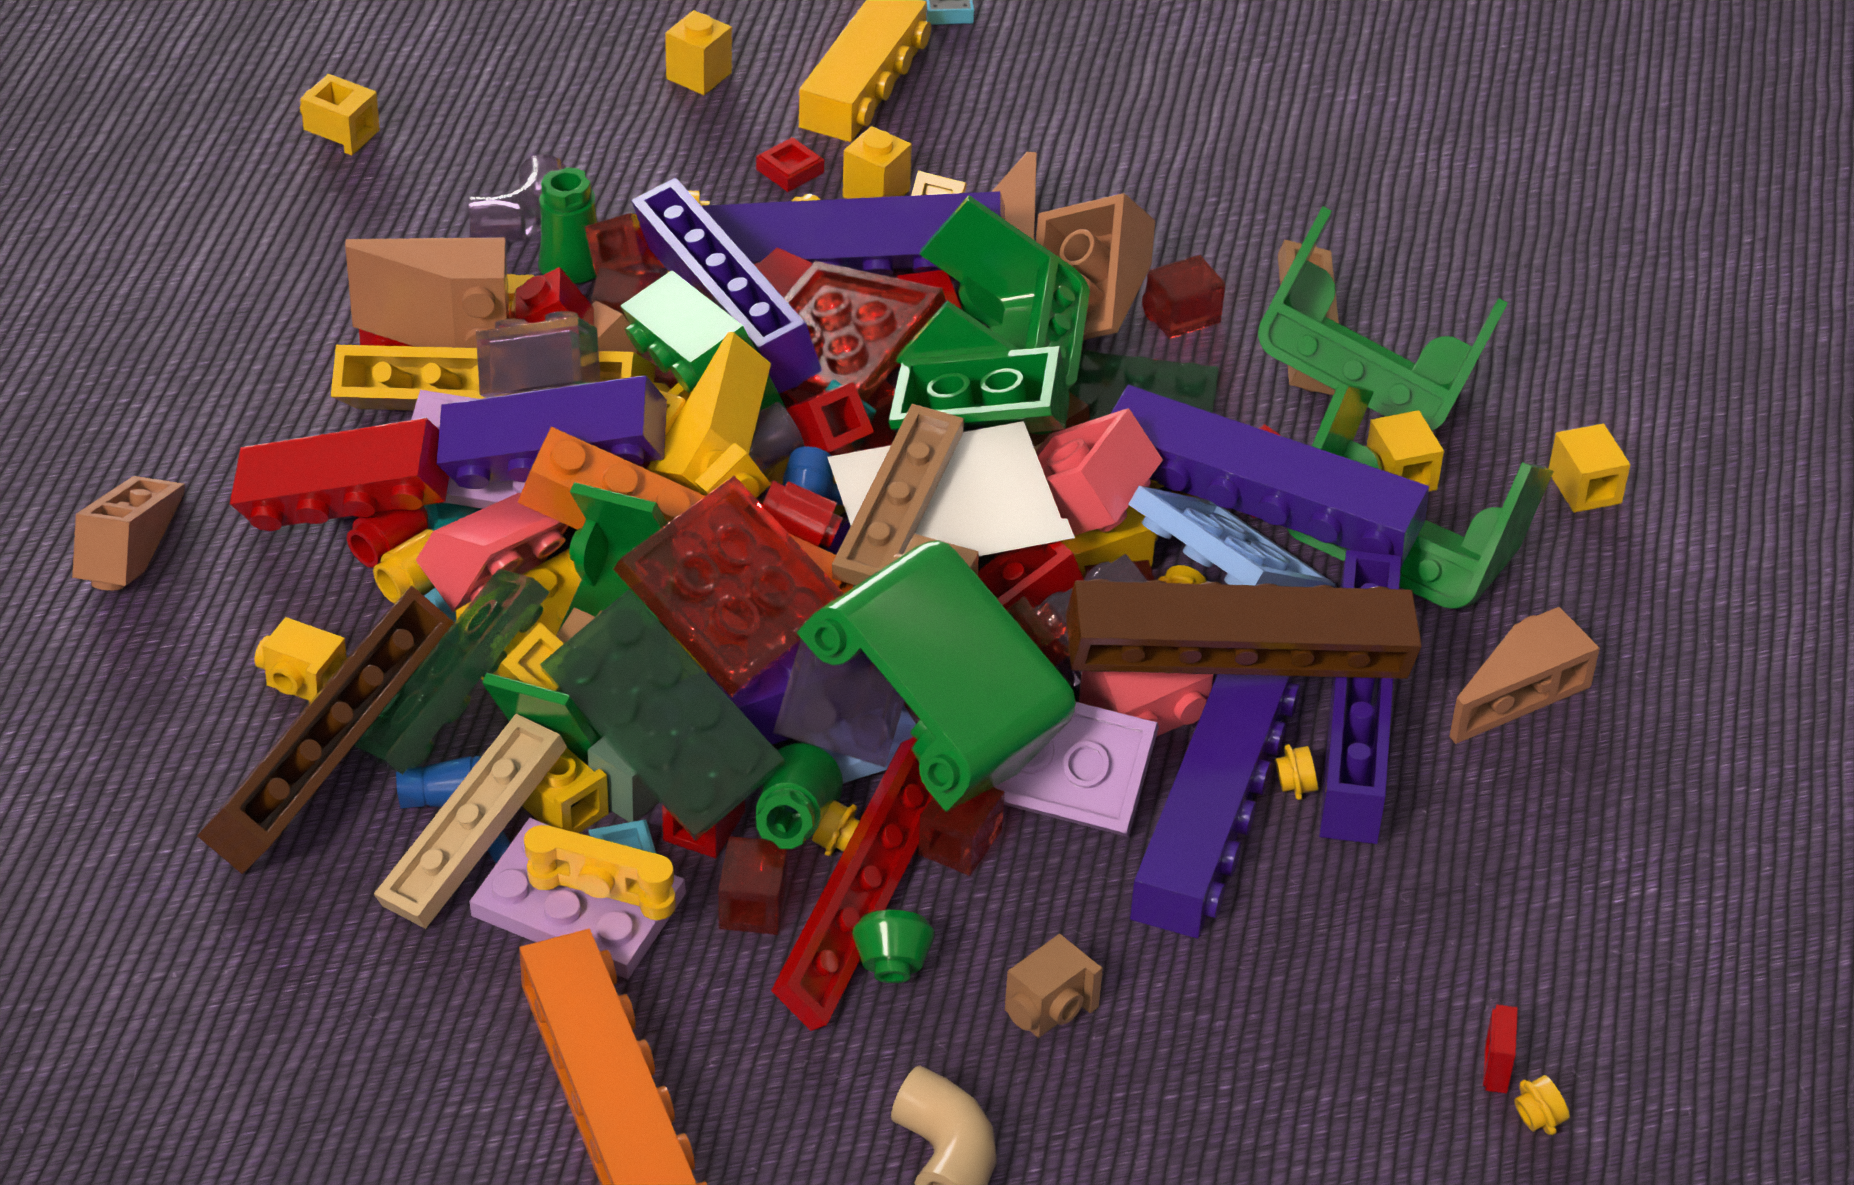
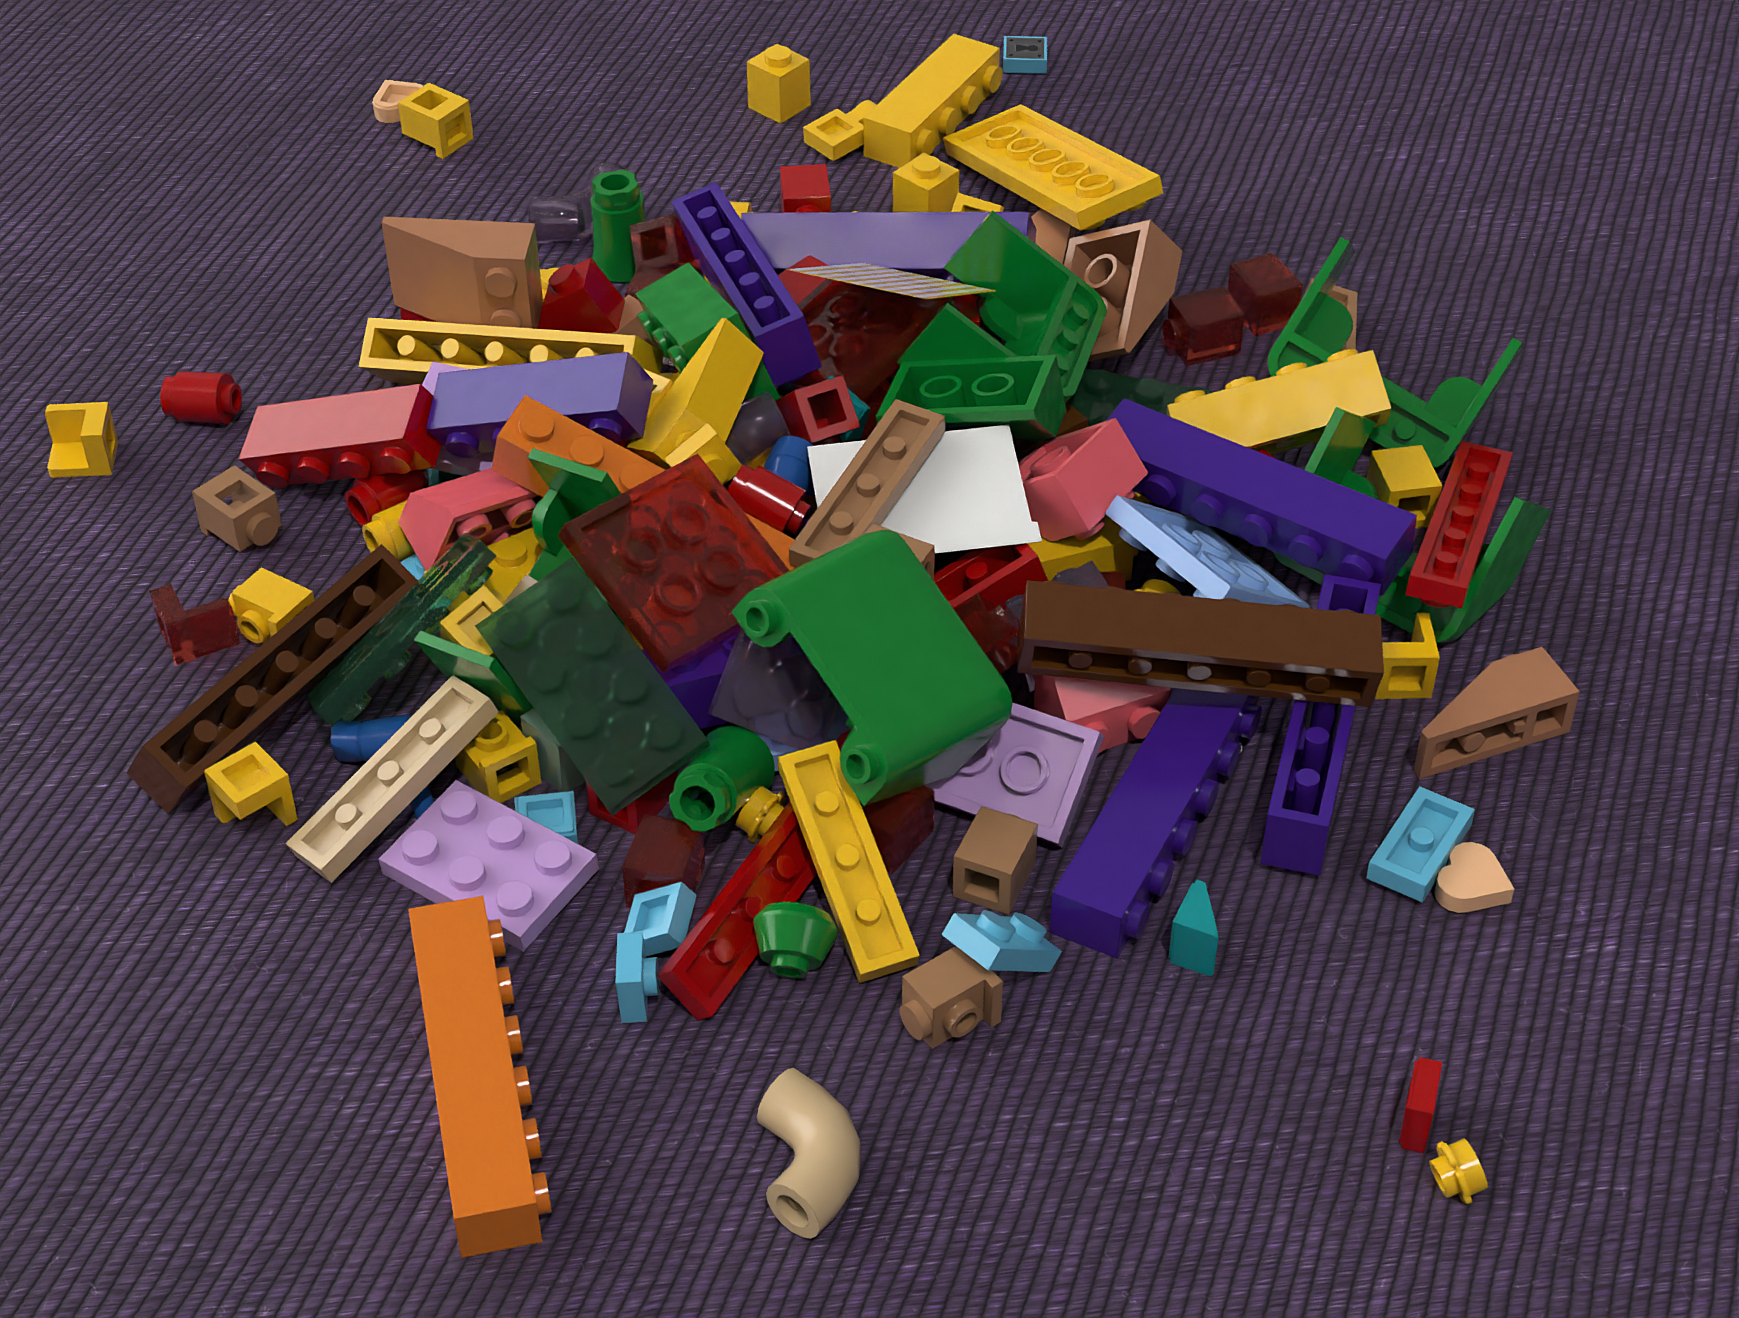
camera: 10 degrees right, 0 degrees up
(48, 492) = (81, 439): none -> yellow panel
(123, 531) = (136, 478): nougat slope -> none
(166, 439) = (201, 397): none -> red brick
(222, 687) = (195, 630): none -> clear red panel
(247, 564) = (247, 520): none -> medium nougat brick
(285, 90) = (387, 98): none -> light nougat tile
(327, 838) = (248, 783): none -> yellow panel
(537, 355) = (542, 329): brick -> none
(600, 869) = (505, 837): yellow plate -> none
(748, 993) = (634, 977): none -> medium azure plate
(751, 175) = (804, 189): none -> red brick
(758, 938) = (662, 916): none -> medium azure plate
(770, 104) = (838, 132): none -> yellow plate
(790, 164) = (851, 187): red tile -> none
(878, 275) = (893, 280): none -> sticker
(933, 866) = (848, 862): none -> yellow plate
(1006, 134) = (1053, 167): none -> yellow plate
(1070, 854) = (995, 860): none -> medium nougat brick
(1095, 930) = (1003, 941): none -> medium azure plate
(1240, 257) = (1264, 292): none -> clear red panel
(1271, 908) = (1195, 932): none -> teal slope
(1290, 380) = (1291, 406): none -> yellow brick
(1297, 771) = (1245, 794): yellow plate -> none
(1440, 629) = (1412, 665): none -> yellow panel
(1467, 490) = (1459, 526): none -> red plate
(1467, 806) = (1420, 844): none -> medium azure plate
(1519, 837) = (1472, 880): none -> light nougat tile
(1589, 467) = (1592, 513): yellow brick -> none

